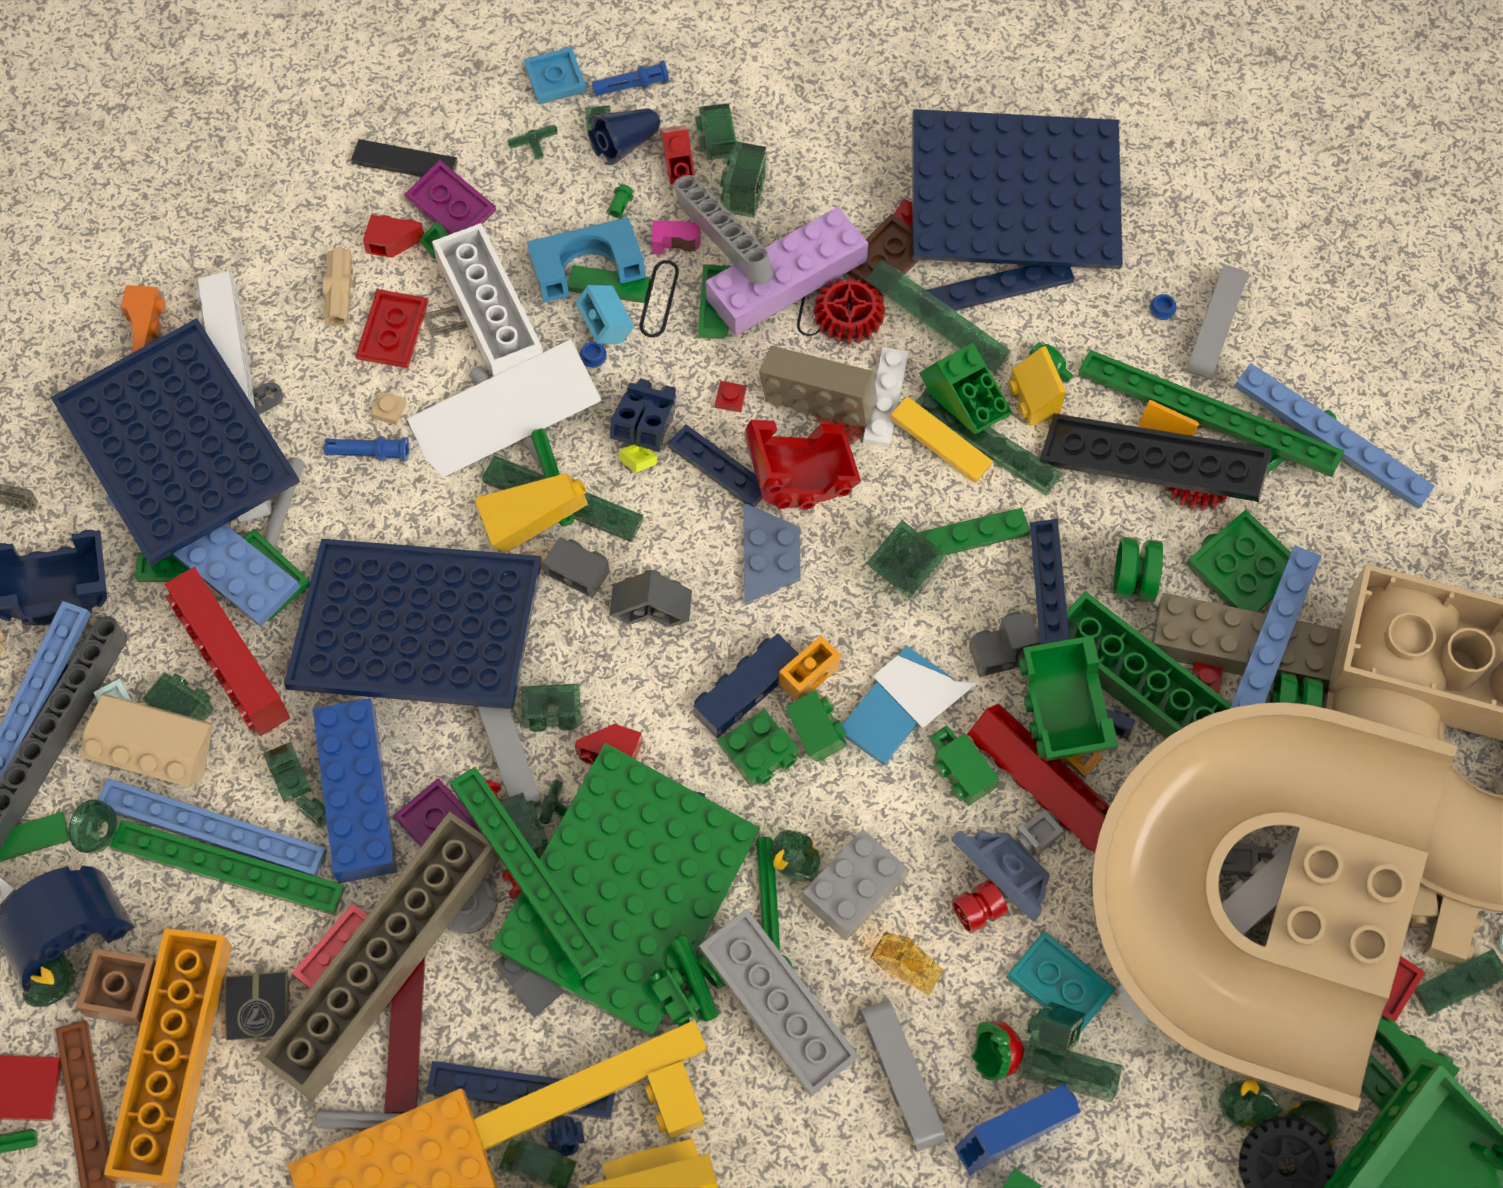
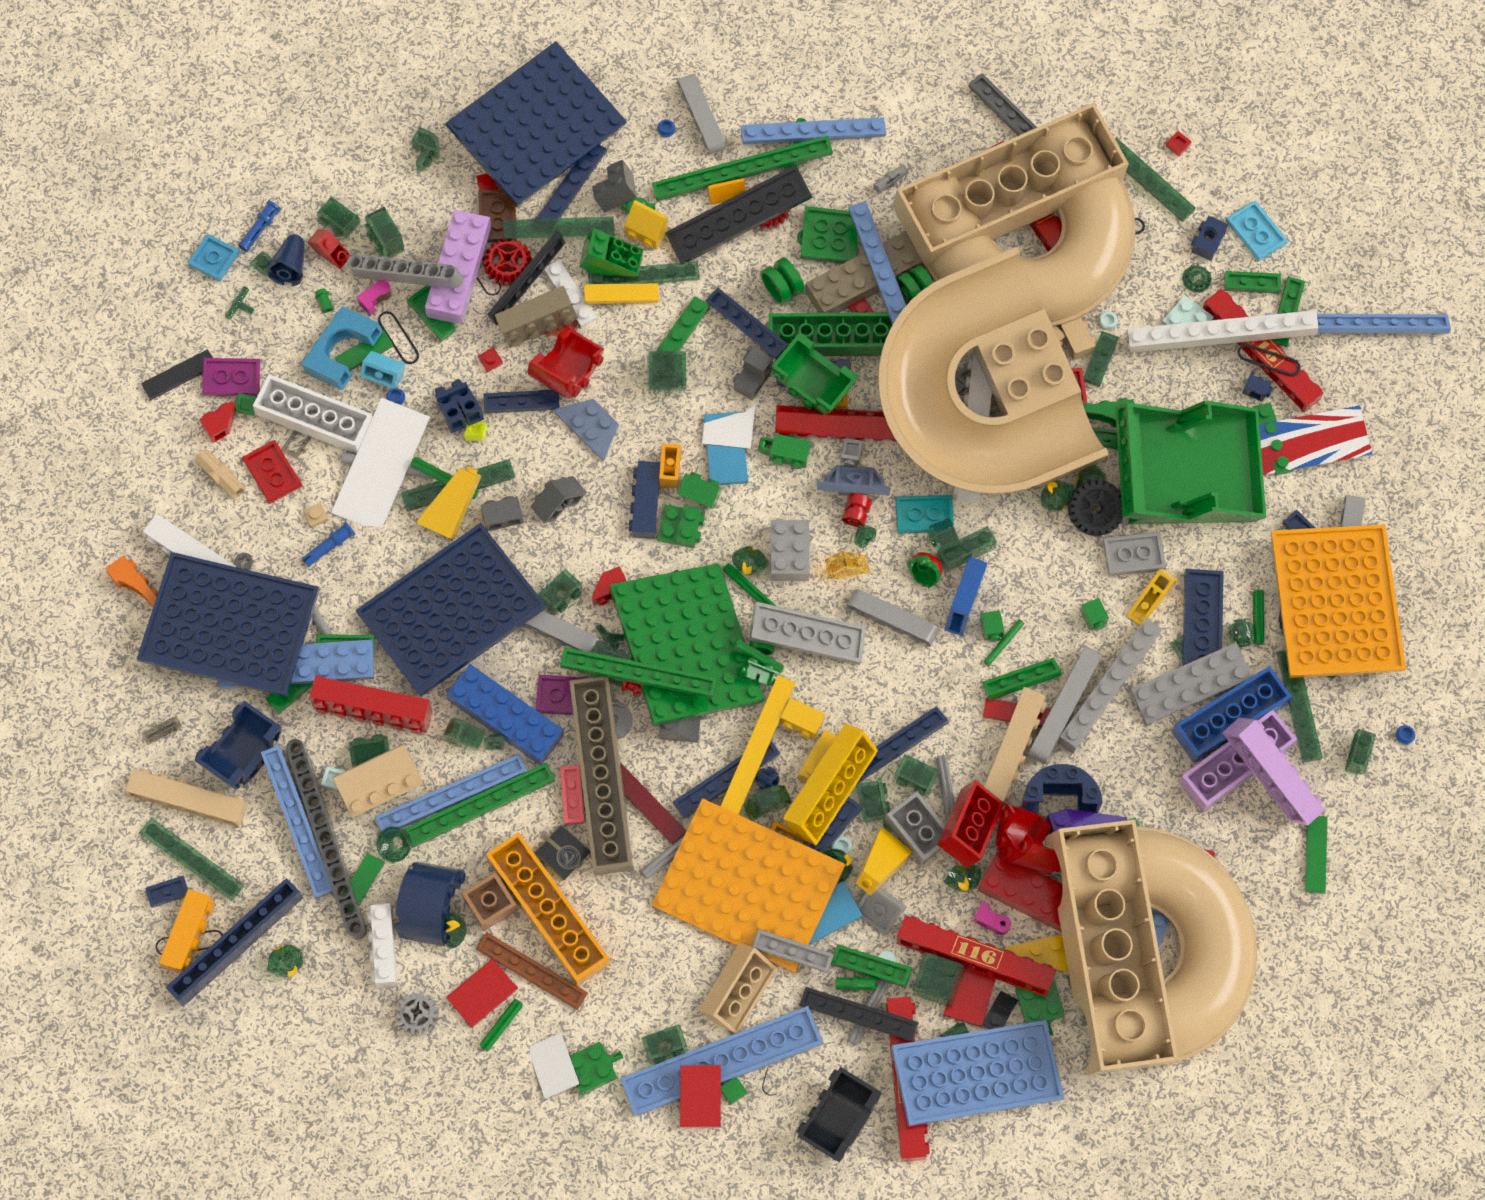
camera: 45 degrees left, 5 degrees up
(862, 338) = (528, 276): none -> black tile
(880, 131) = (428, 146): none -> clear green brick
(961, 944) = (864, 534): none -> clear green tile
(1043, 323) = (617, 188): none -> dark grey brick
(1399, 560) = (890, 178): none -> light grey pin

